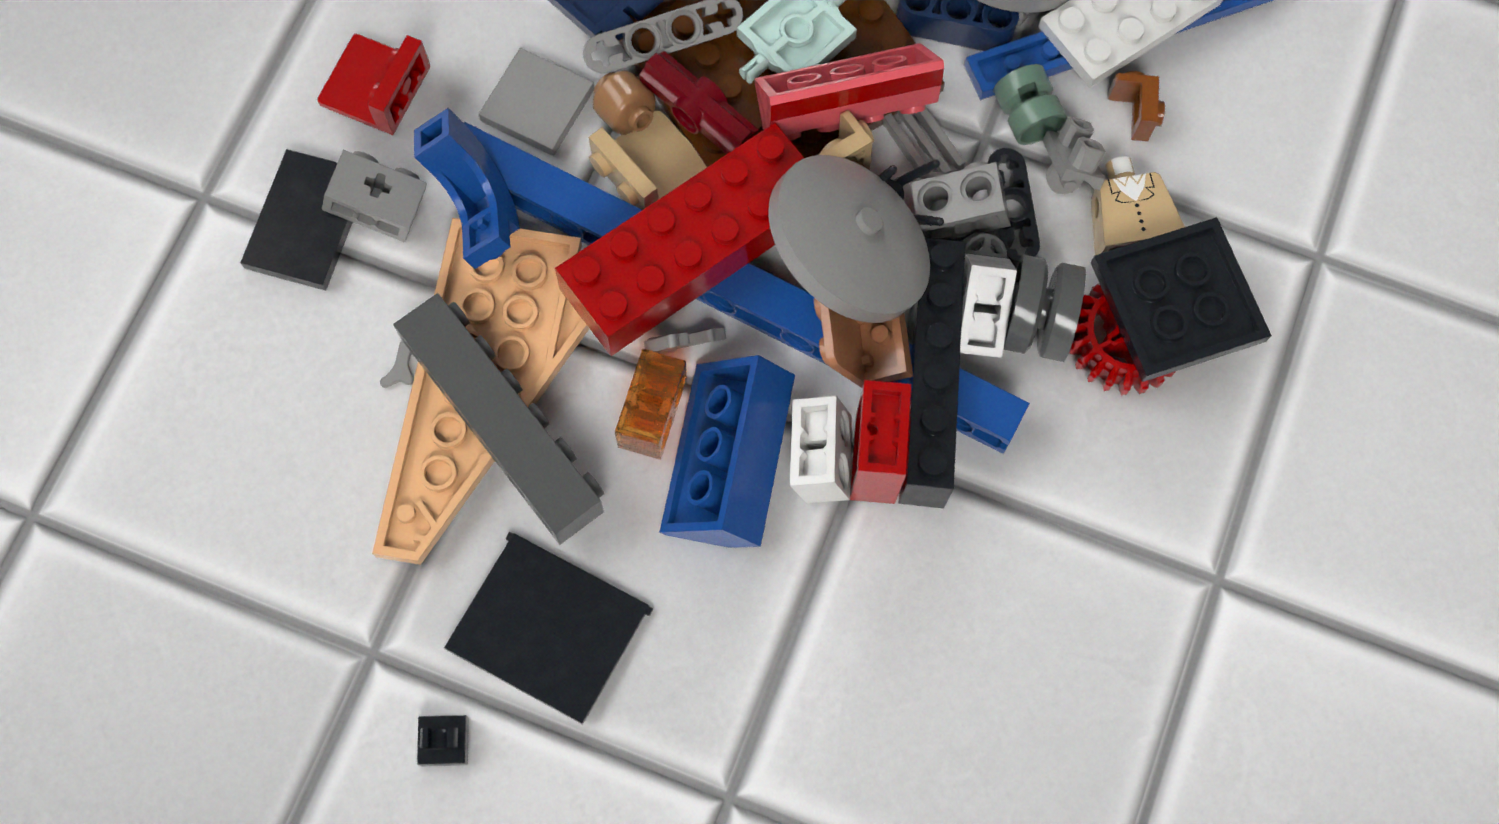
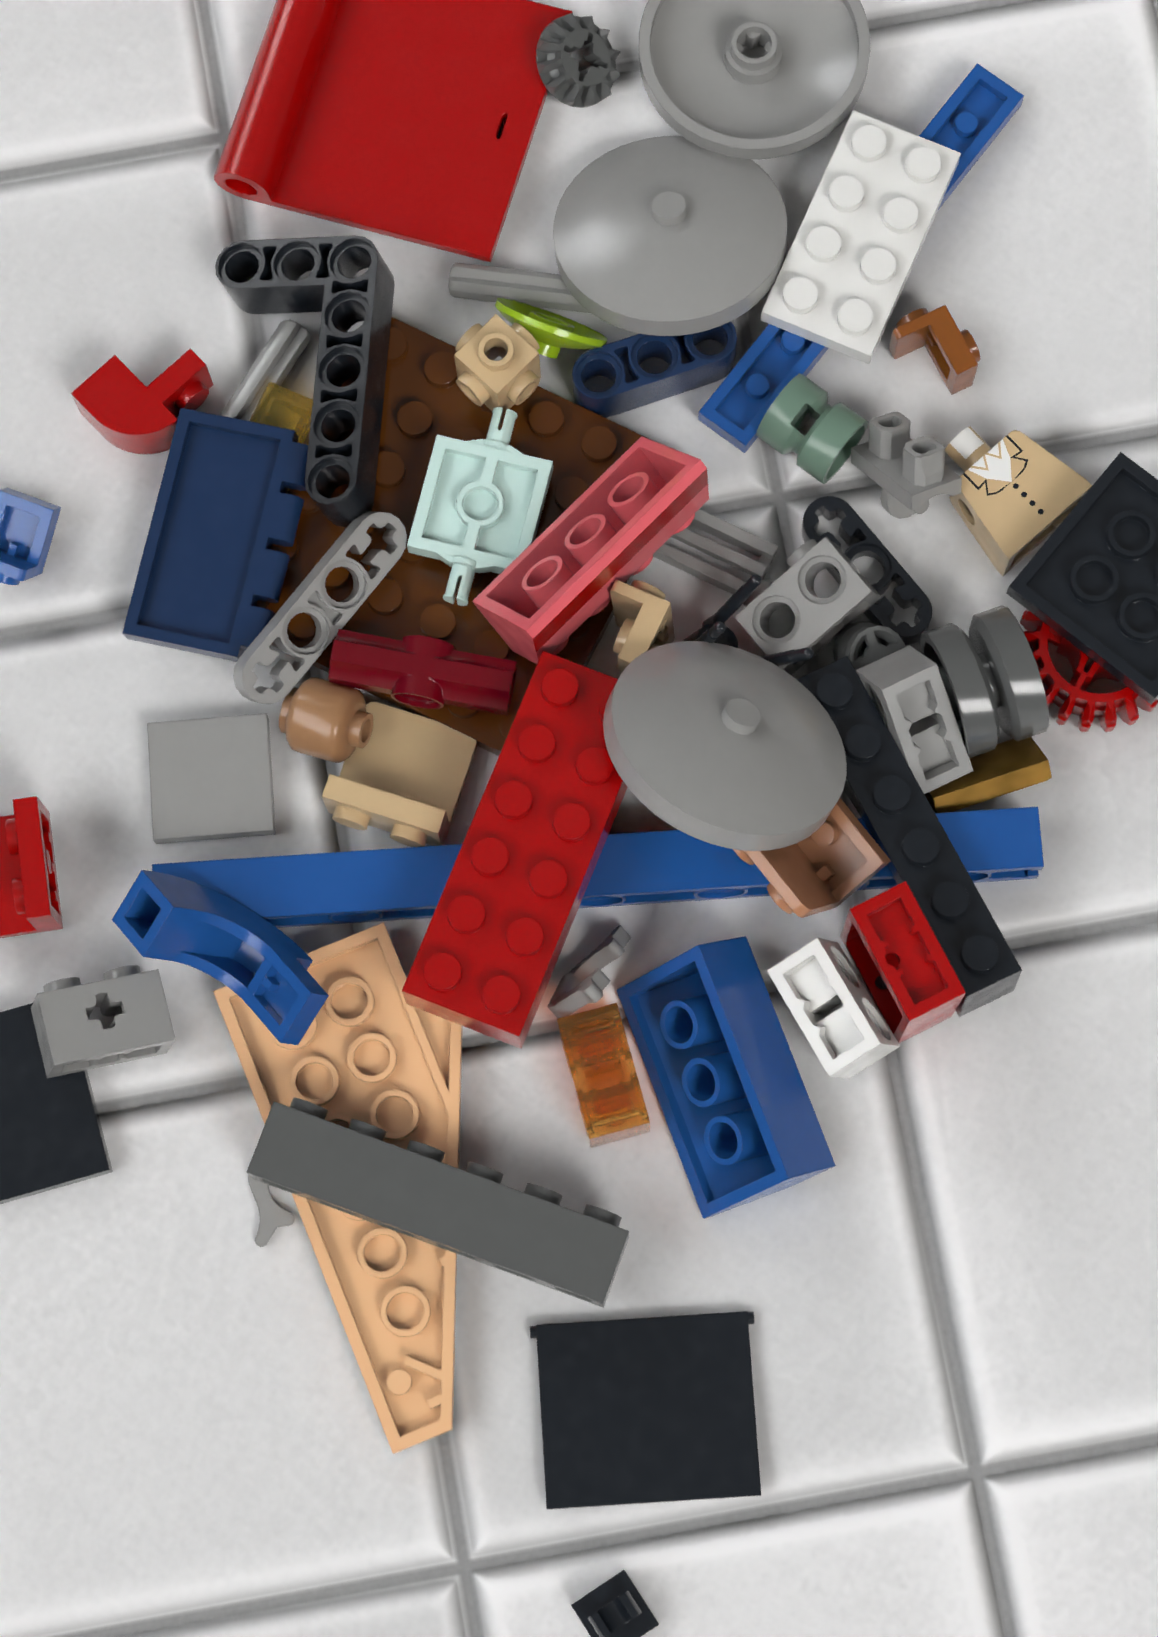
camera: 25 degrees left, 5 degrees up
(1012, 370) = (994, 774): none -> pearl gold tile

